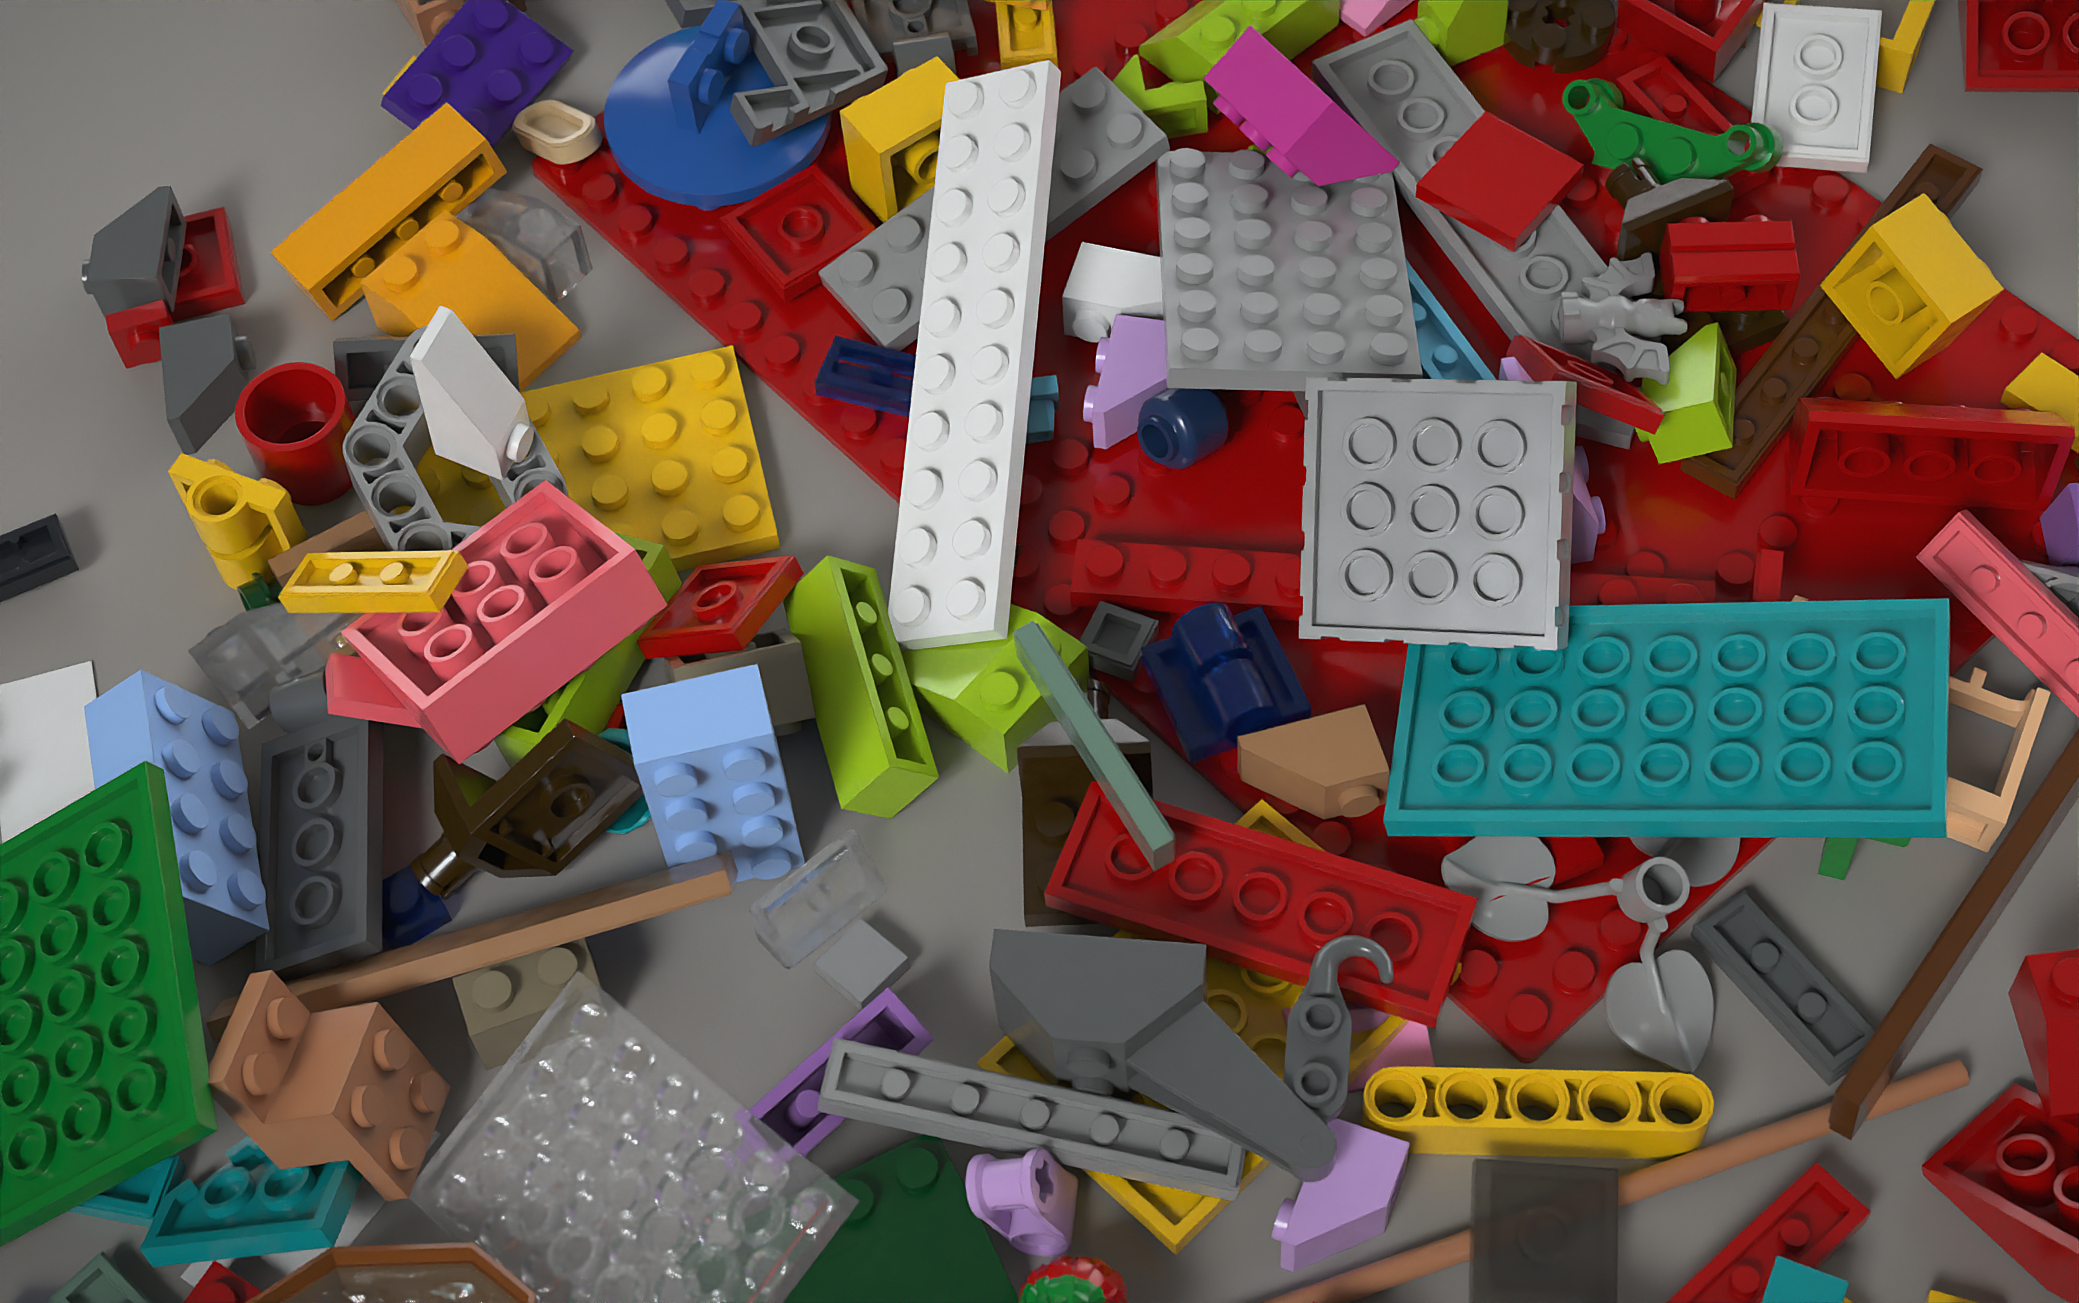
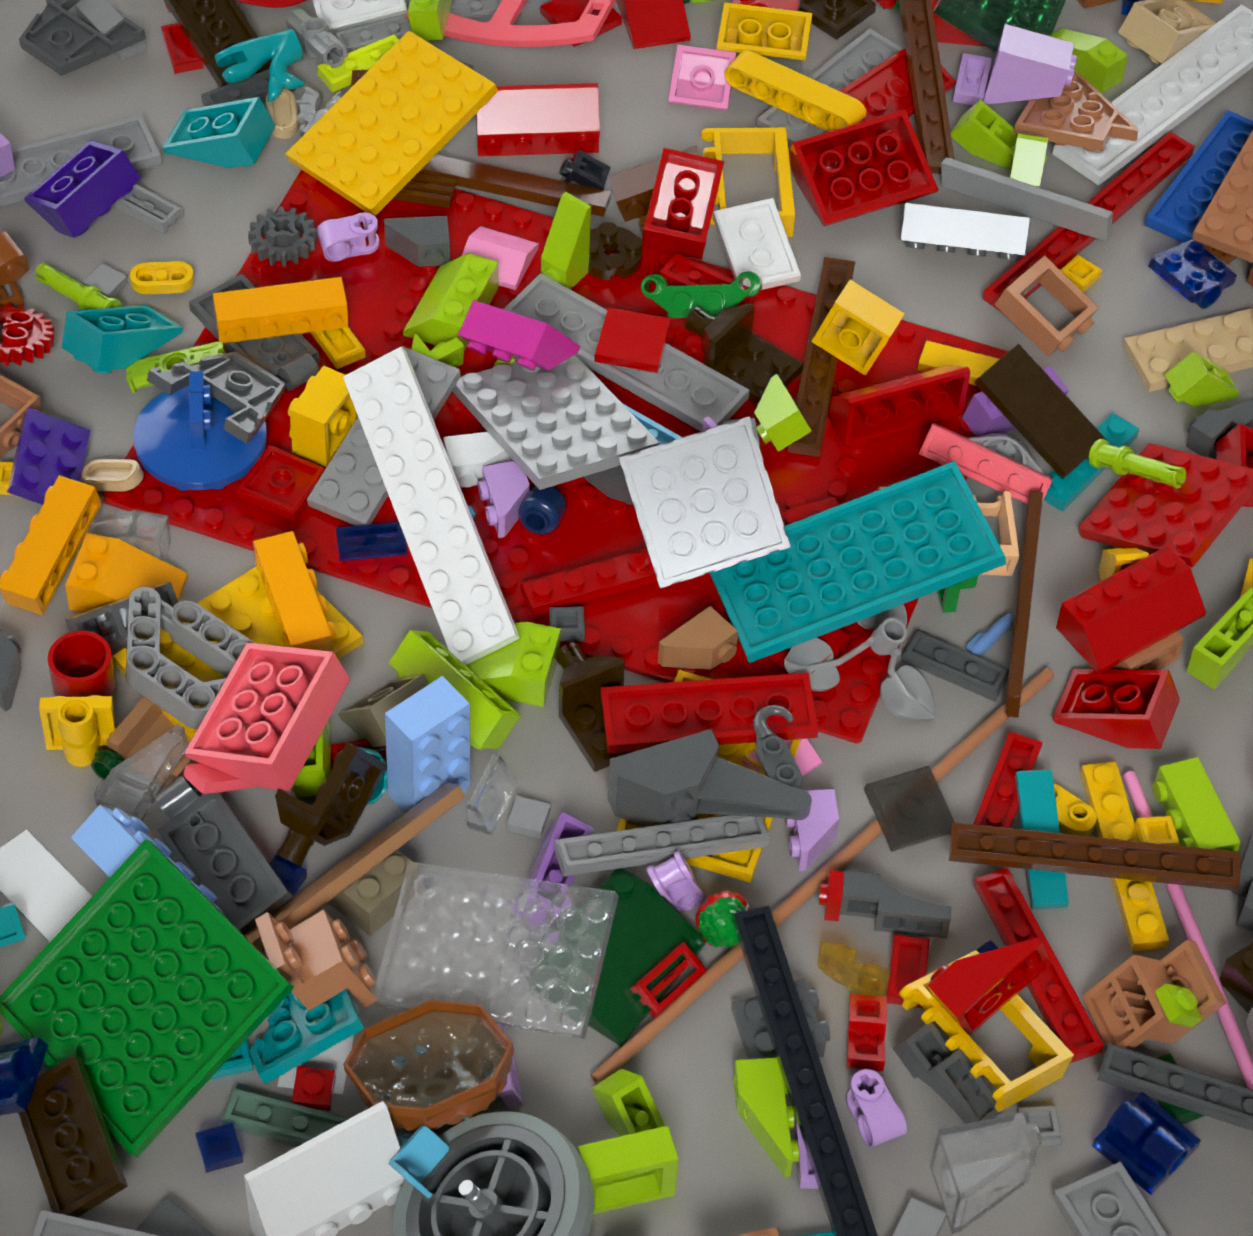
camera: 35 degrees left, 5 degrees down
(373, 582) = (186, 723): yellow tile -> none
(468, 400) = (201, 614): white slope -> none
(689, 431) = (293, 593): none -> light orange brick
(720, 607) = (370, 675): red tile -> none
(1095, 745) = (601, 666): sand green tile -> none
(1223, 679) = (631, 622): clear blue plate -> none
(1563, 1093) = (891, 749): yellow beam -> none
(1596, 386) = (759, 425): red tile -> none
(1613, 319) = (732, 391): light grey animal -> none
(1730, 264) = (767, 345): red brick -> none
(1766, 576) = (858, 485): red tile -> none
(1867, 960) = (985, 641): none -> medium blue piece

